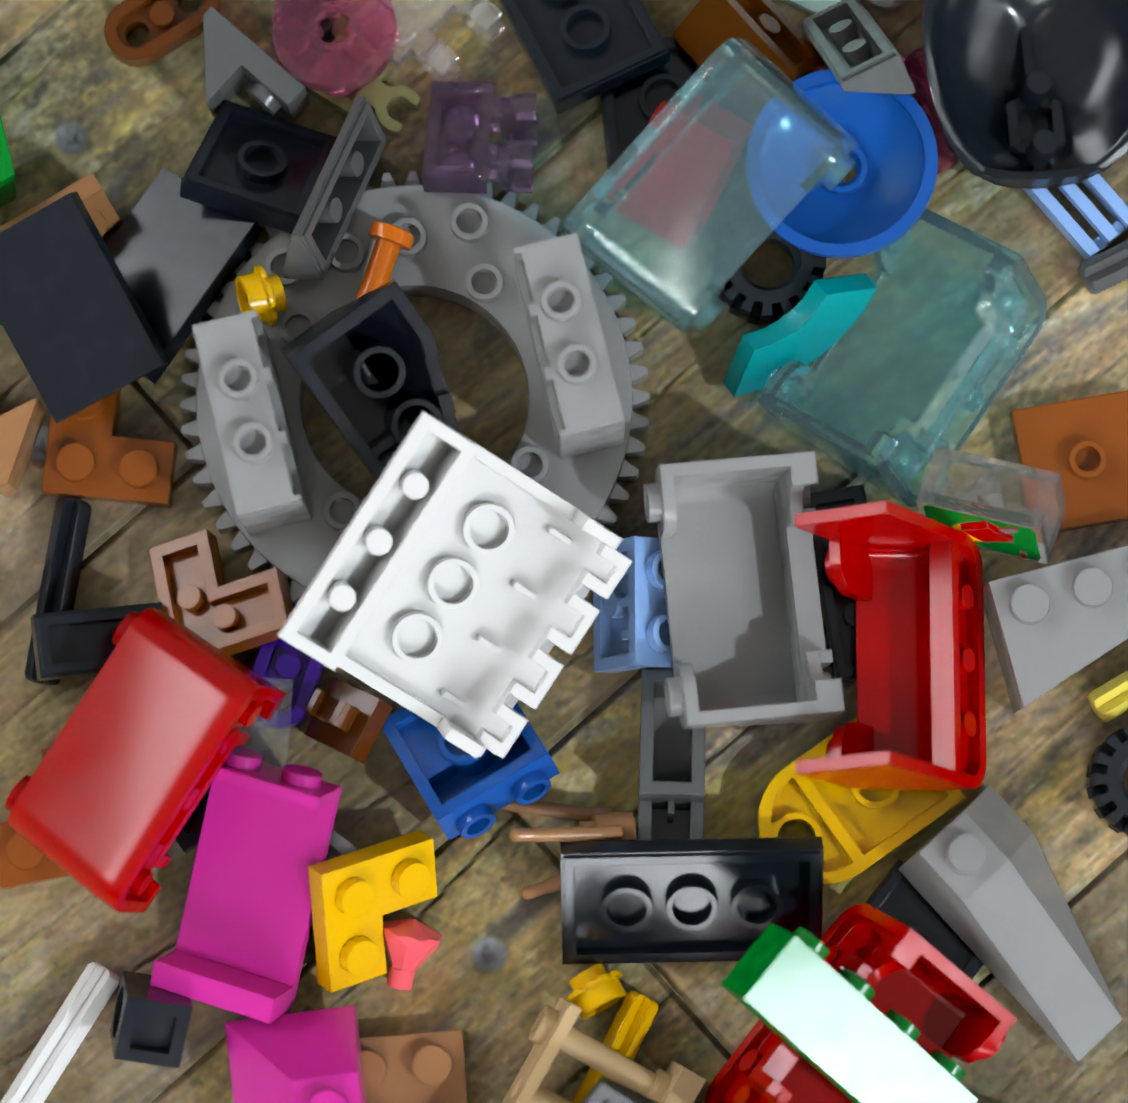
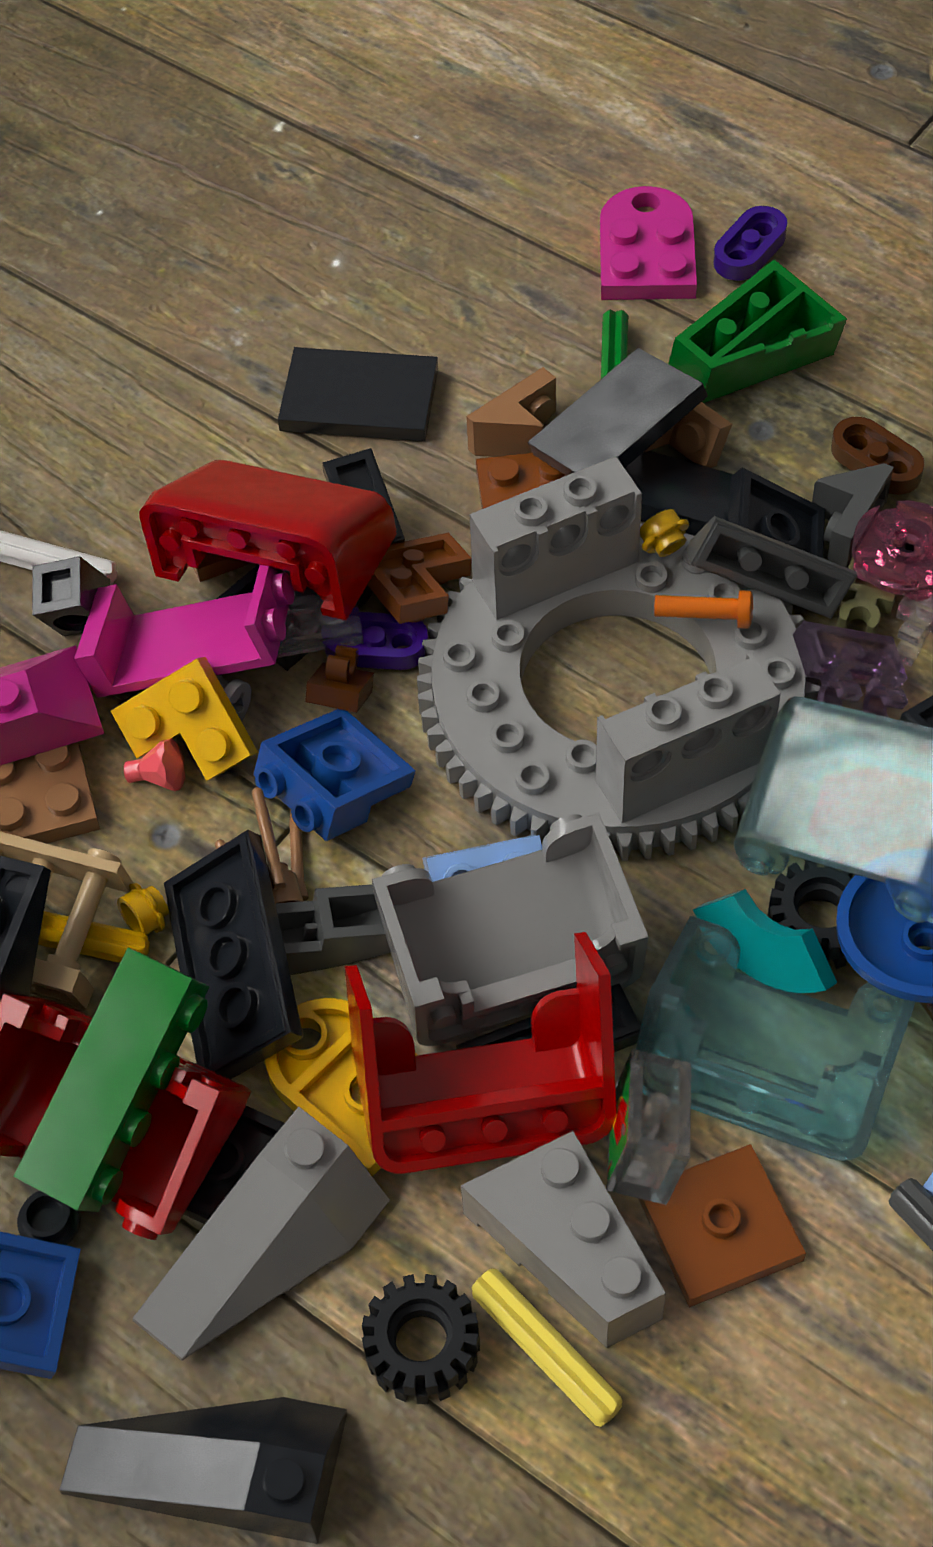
camera: 80 degrees right, 25 degrees down
(61, 566) = (430, 485): black axle -> none
(373, 372) = (595, 622): black wedge -> none
(457, 588) = (461, 691): white slope -> none

